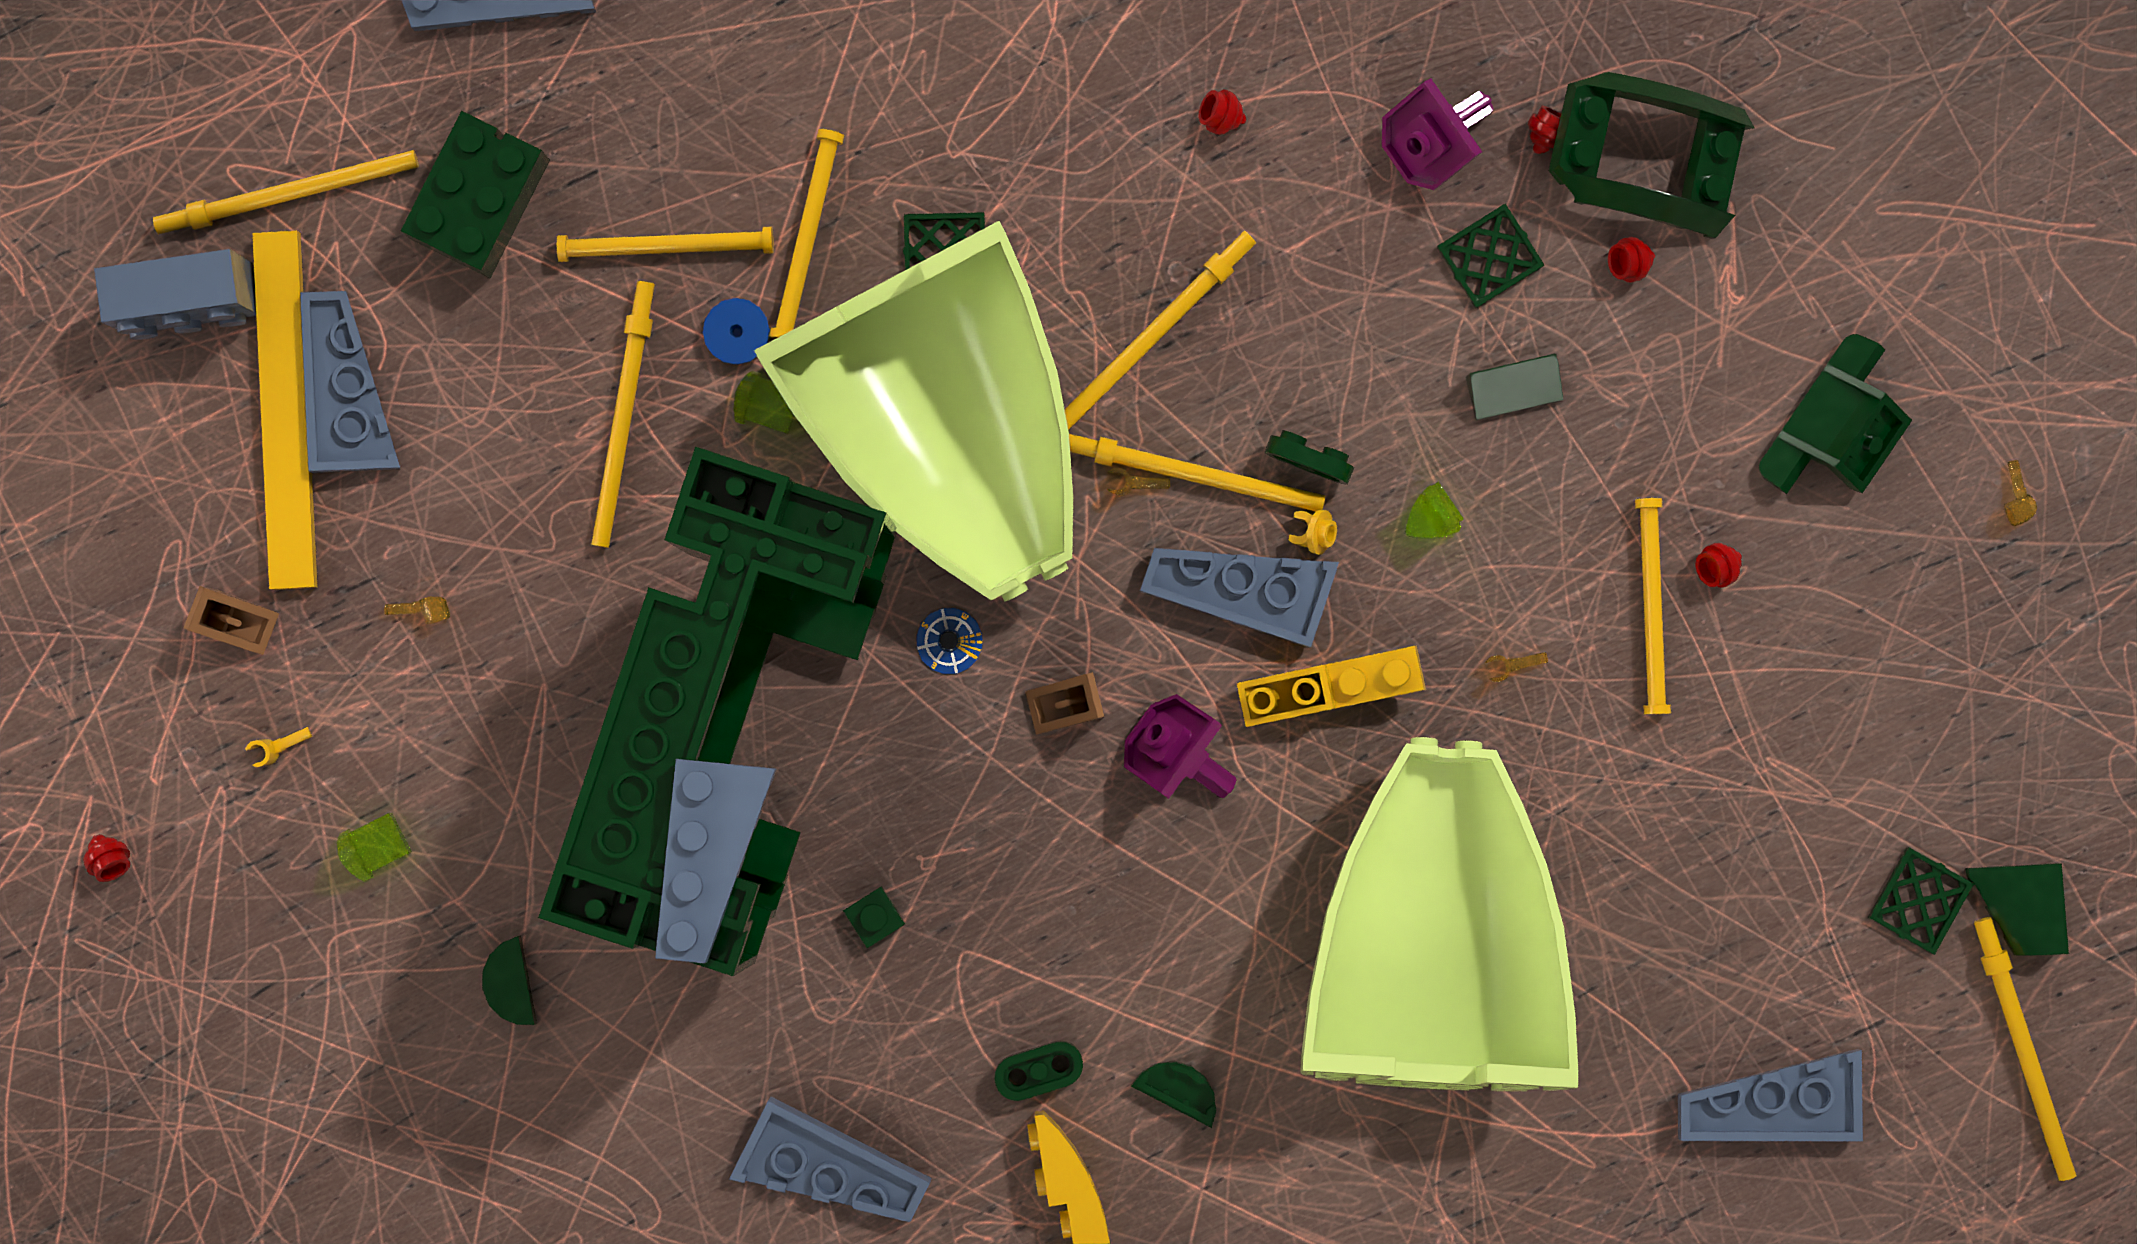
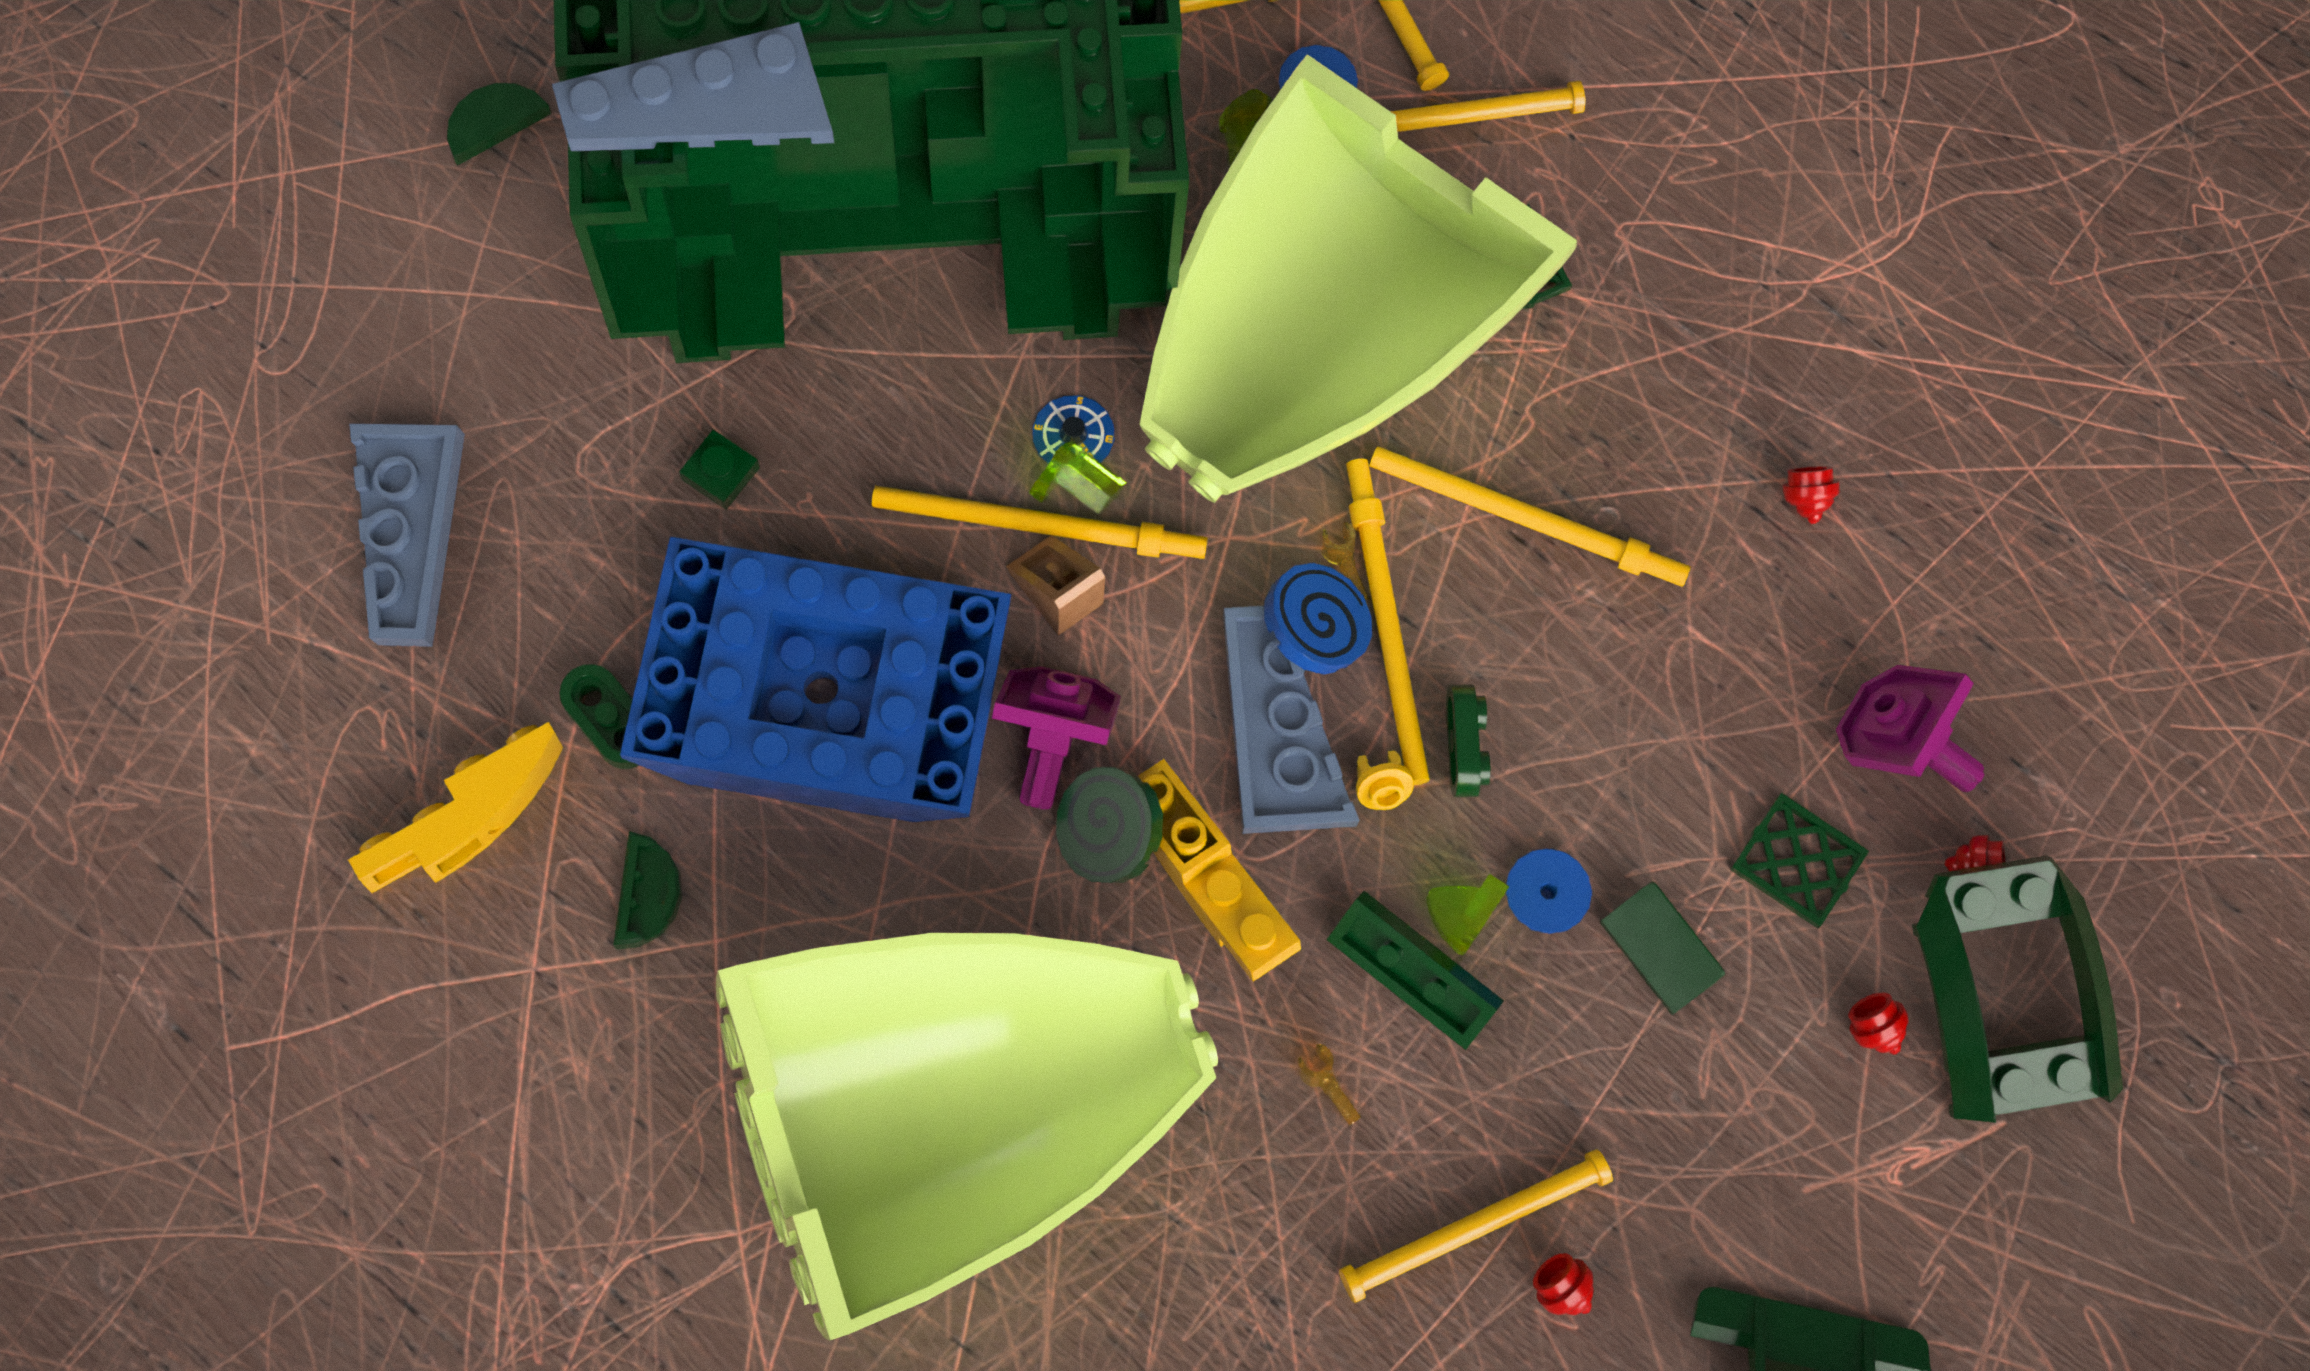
camera: 60 degrees right, 15 degrees down
(994, 653) = (1080, 476): none -> clear neon green tile
(1059, 621) = (1148, 539): none -> yellow bar
(1067, 977) = (750, 631): none -> blue slope
(1176, 524) = (1318, 618): none -> blue tile
(1271, 743) = (1109, 825): none -> dark green tile
(1441, 448) = (1548, 891): none -> blue piece
(1461, 570) = (1415, 970): none -> dark green plate

